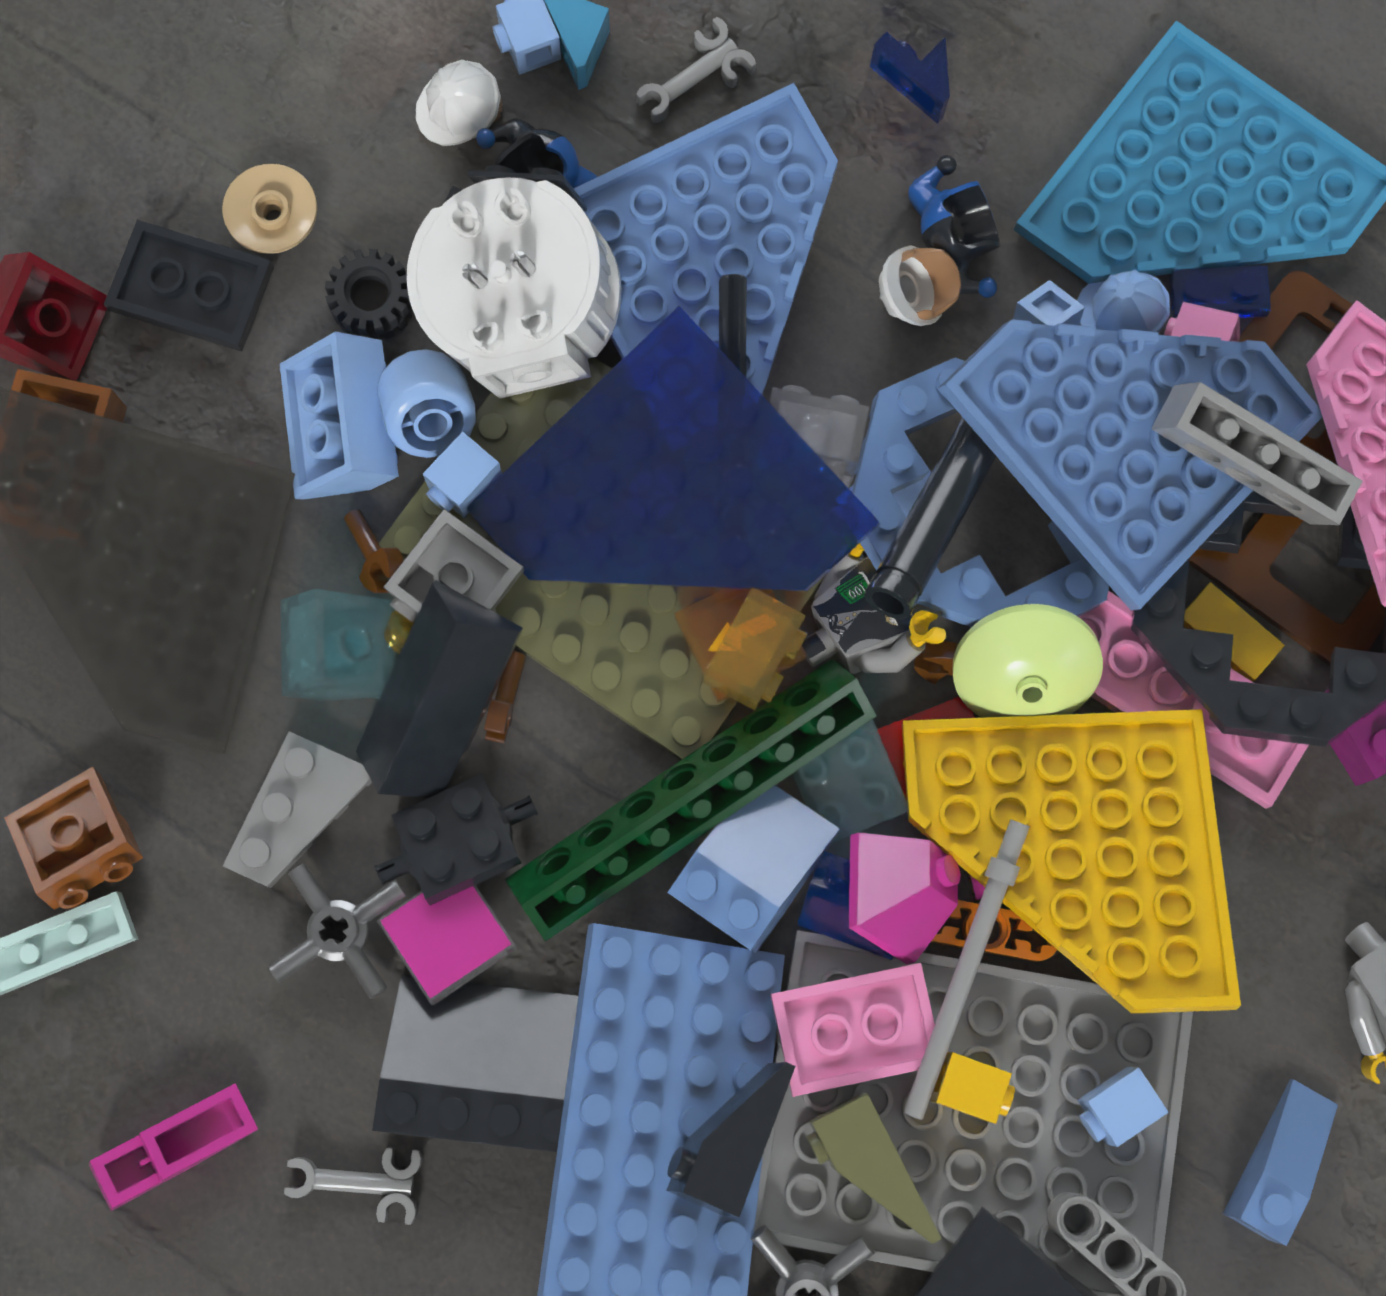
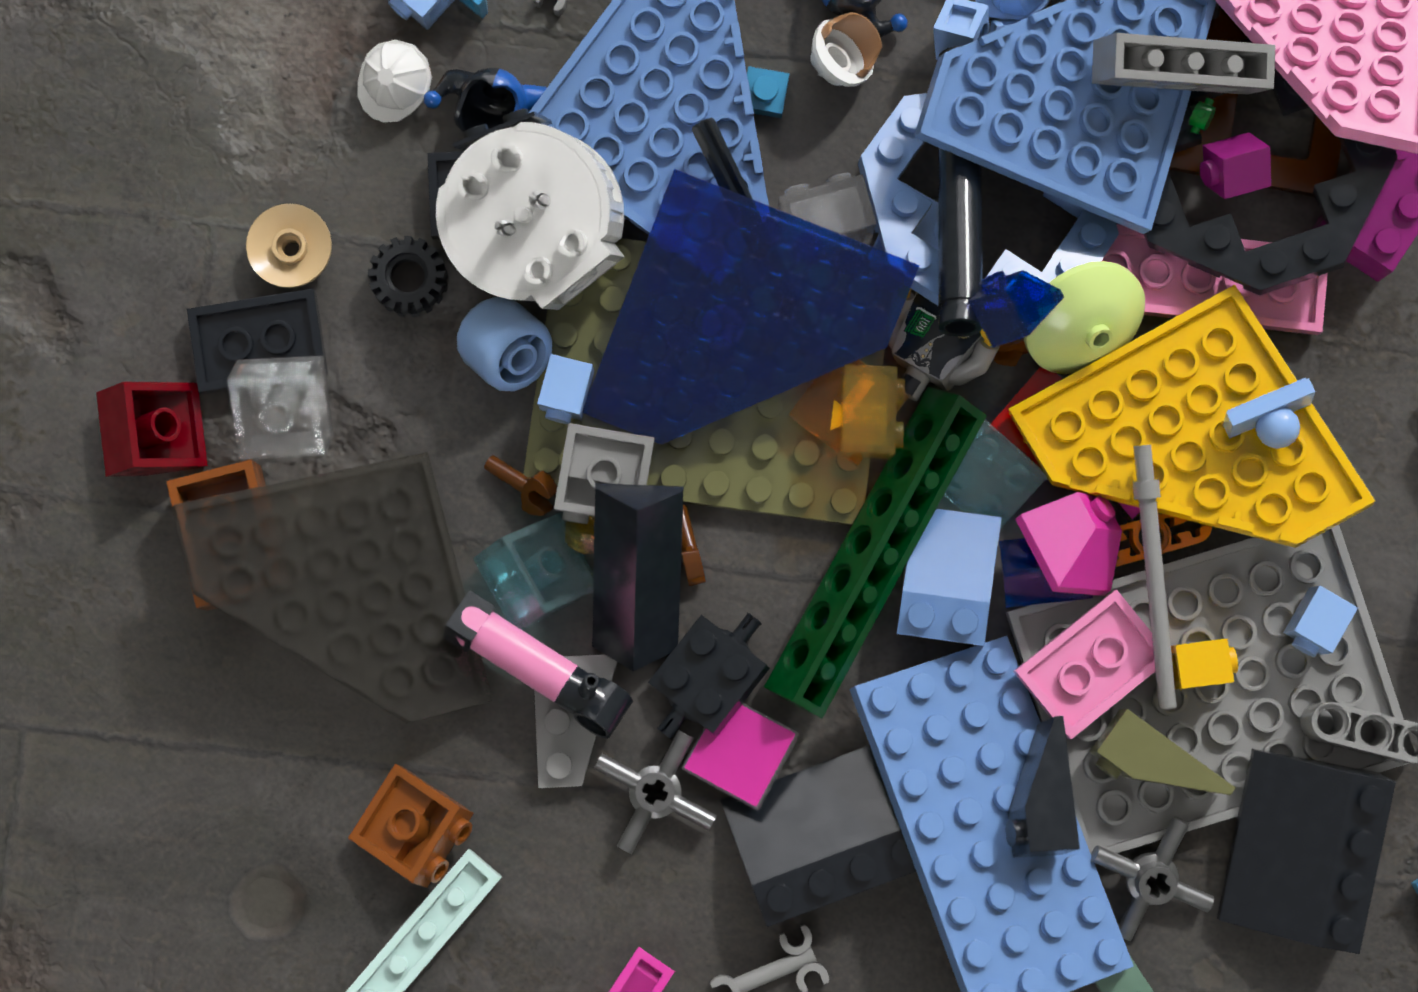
camera: 25 degrees left, 5 degrees up
(171, 355) = (281, 407): none -> clear brick
(317, 800) = (592, 700): none -> piece
(337, 417) = (436, 390): light blue slope -> none
(820, 291) = (767, 91): none -> dark azure plate
(954, 605) = (1013, 305): none -> clear blue slope
(1174, 858) = (1272, 414): none -> light blue tile
(1251, 522) = (1202, 115): none -> green piece
(1252, 643) = (1247, 209): yellow tile -> none
(1262, 588) = (1236, 165): none -> magenta brick

